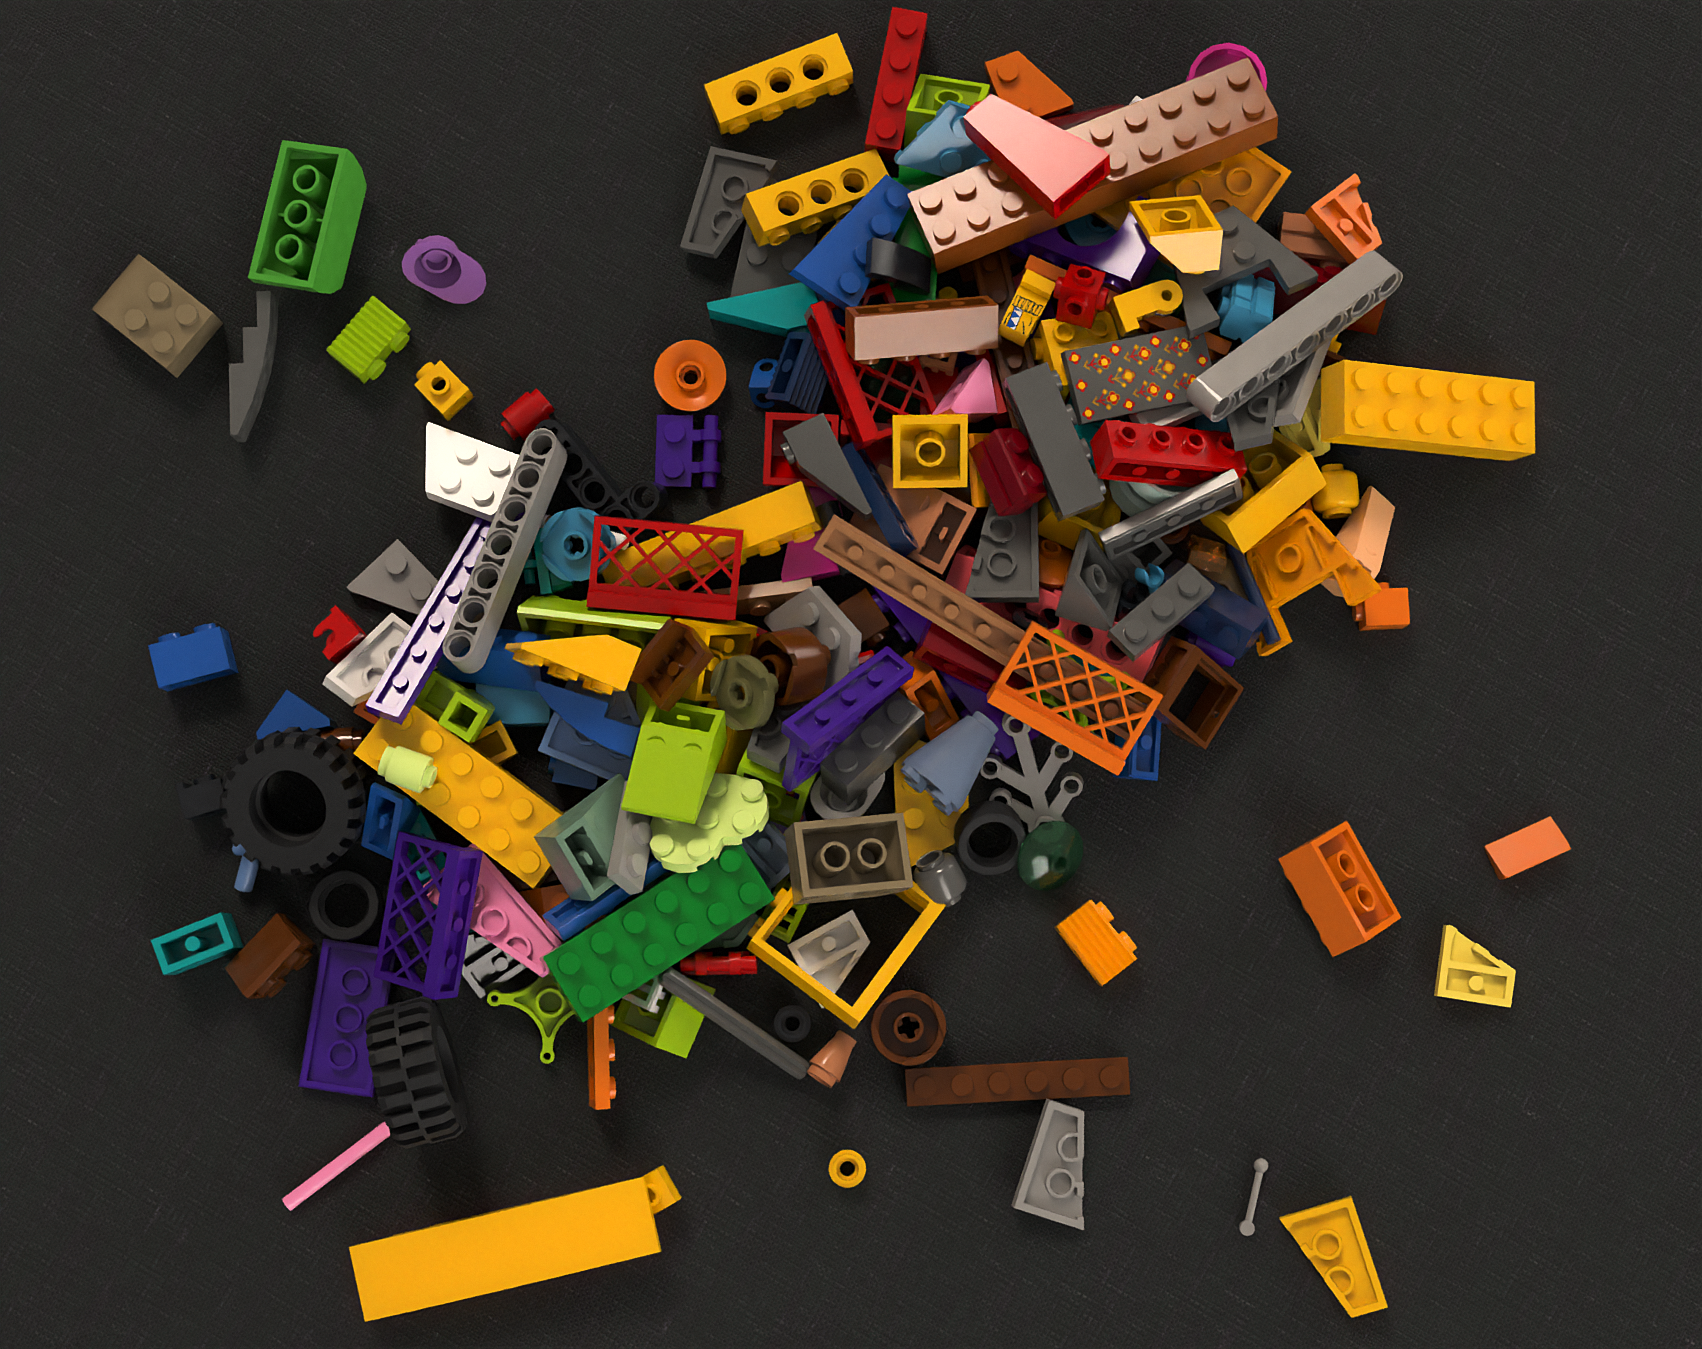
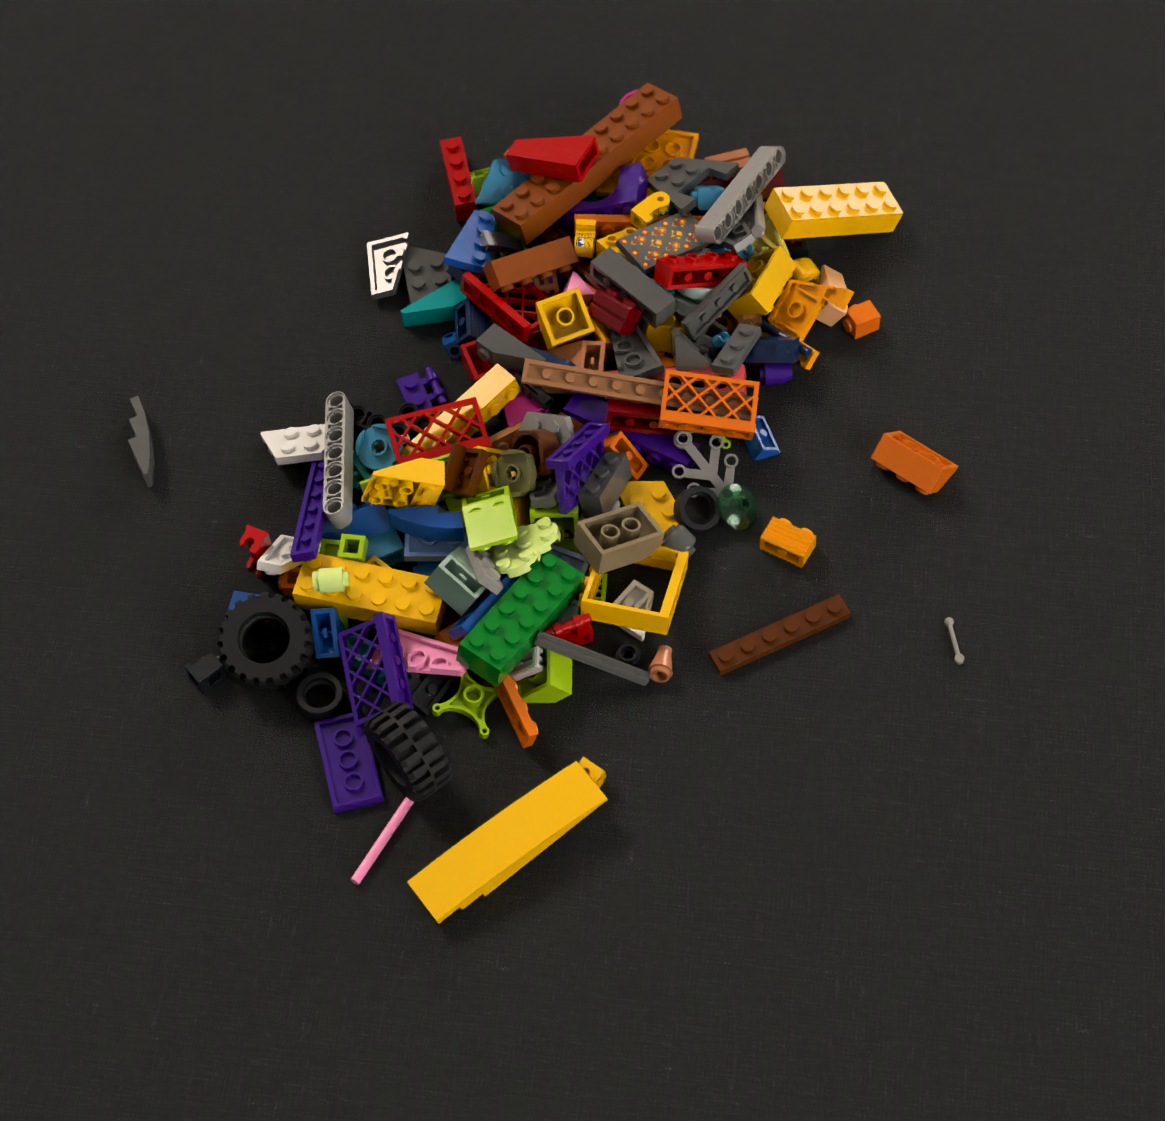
camera: 20 degrees left, 25 degrees down
(157, 315) = (73, 436): dark tan brick -> none
(193, 657) = (167, 602): blue brick -> none
(197, 943) = (235, 749): teal brick -> none
(247, 871) = (249, 700): medium blue arm -> none
(270, 957) = (285, 740): reddish brown slope -> none
(309, 218) = (146, 351): bright green windscreen -> none
(369, 340) = (207, 404): lime brick -> none
(396, 580) = (277, 517): light grey wing -> none
(444, 270) = (238, 352): medium lavender piece -> none
(448, 400) = (262, 412): yellow brick -> none
(525, 414) = (315, 407): red brick -> none
(687, 358) = (406, 345): orange dish -> none
(790, 68) = (392, 202): yellow brick -> none
(796, 194) = (432, 243): yellow brick -> none
(847, 1180) = (700, 713): yellow plate -> none
(926, 1038) = (699, 624): reddish brown brick -> none
(951, 762) = (653, 475): sand blue cone -> none
(1053, 1169) = (825, 668): light grey wing -> none
(1080, 295) = (612, 217): red brick -> none
(1168, 678) = (765, 371): reddish brown window -> none
(1181, 231) = (655, 166): yellow slope -> none
(1338, 1250) = (1020, 646): yellow wing -> none
(1346, 221) = (736, 145): orange wing -> none
(1471, 972) = (1014, 475): light yellow wing -> none
(1526, 848) = (1009, 404): orange slope -> none

